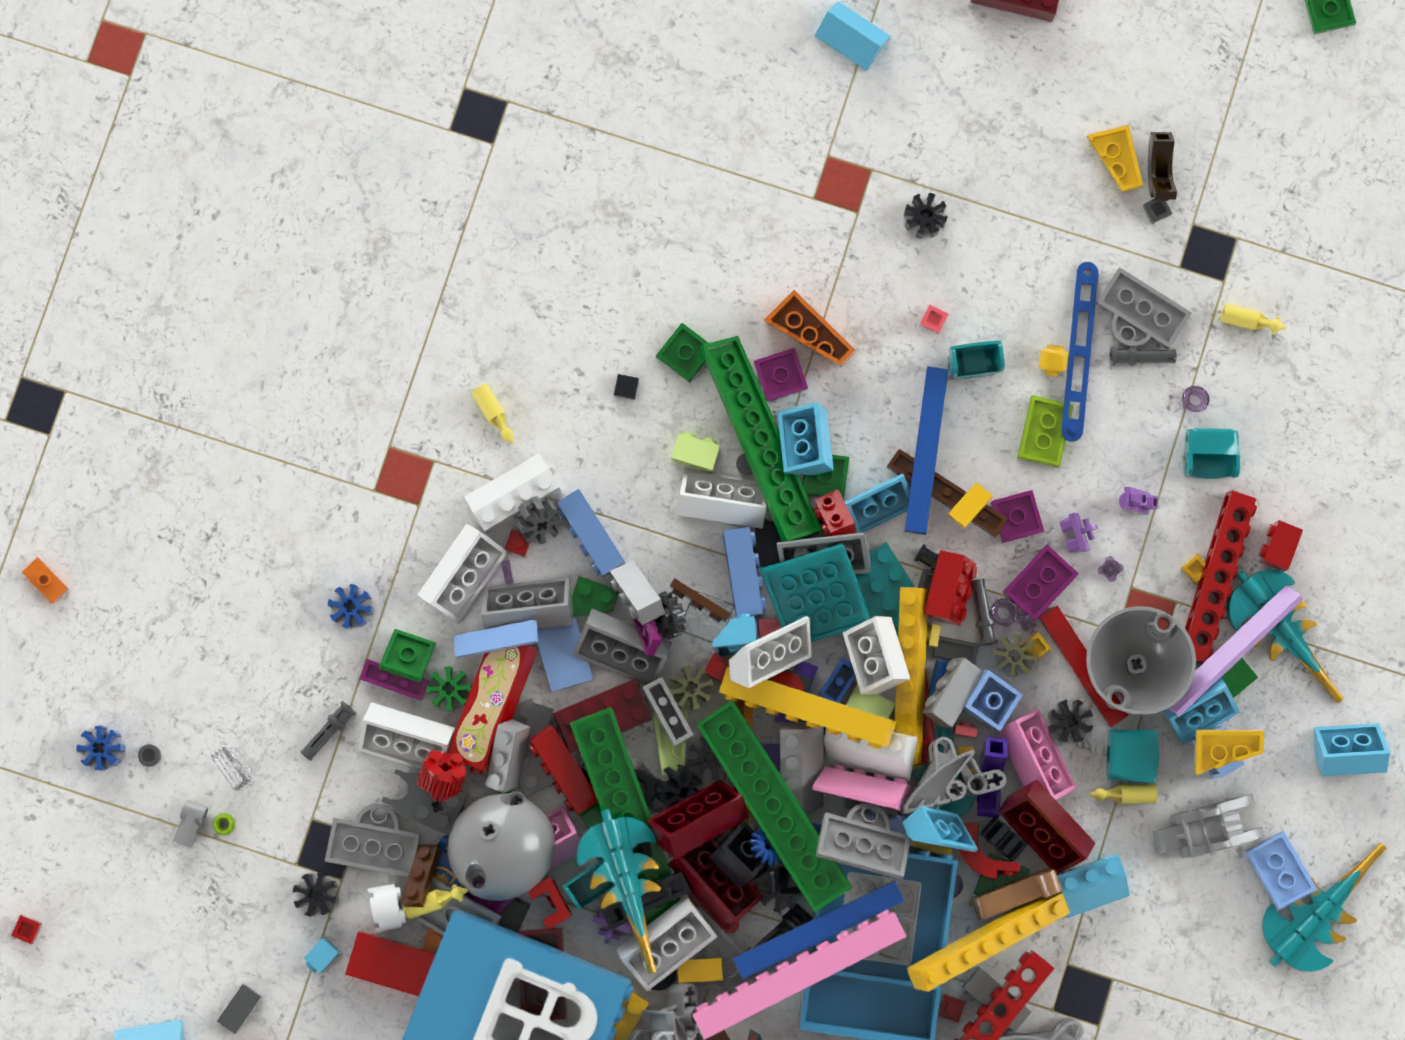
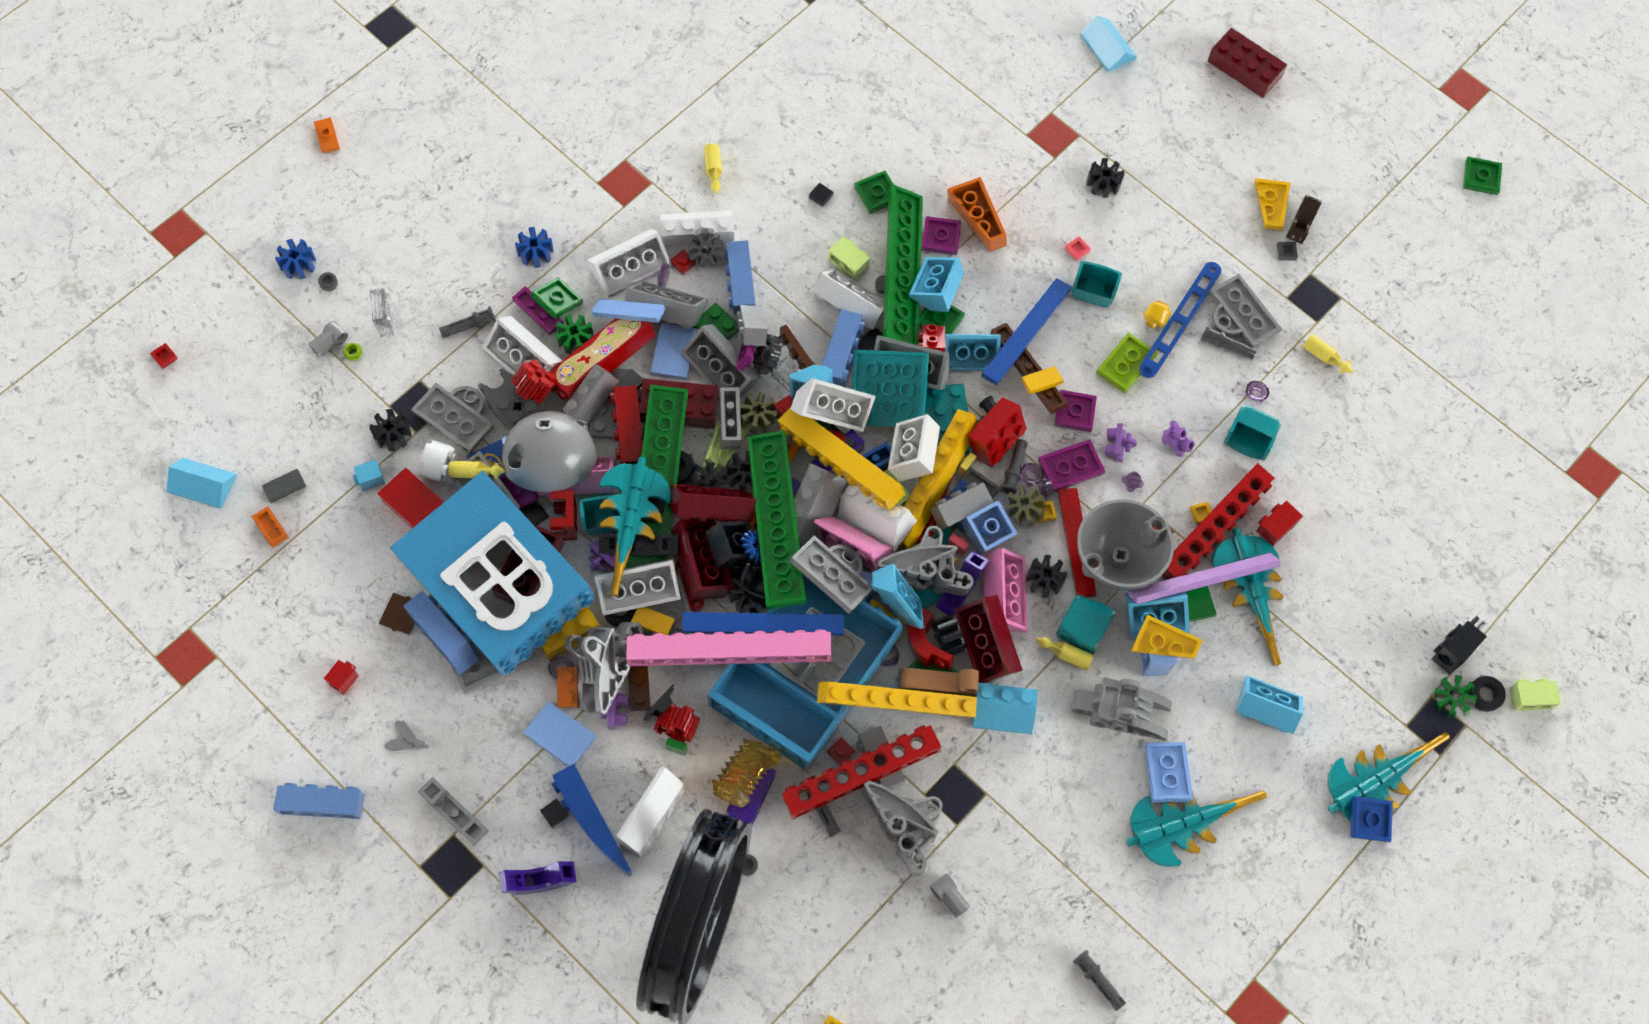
camera: 25 degrees right, 15 degrees down
(421, 876) = (476, 449): reddish brown plate -> none

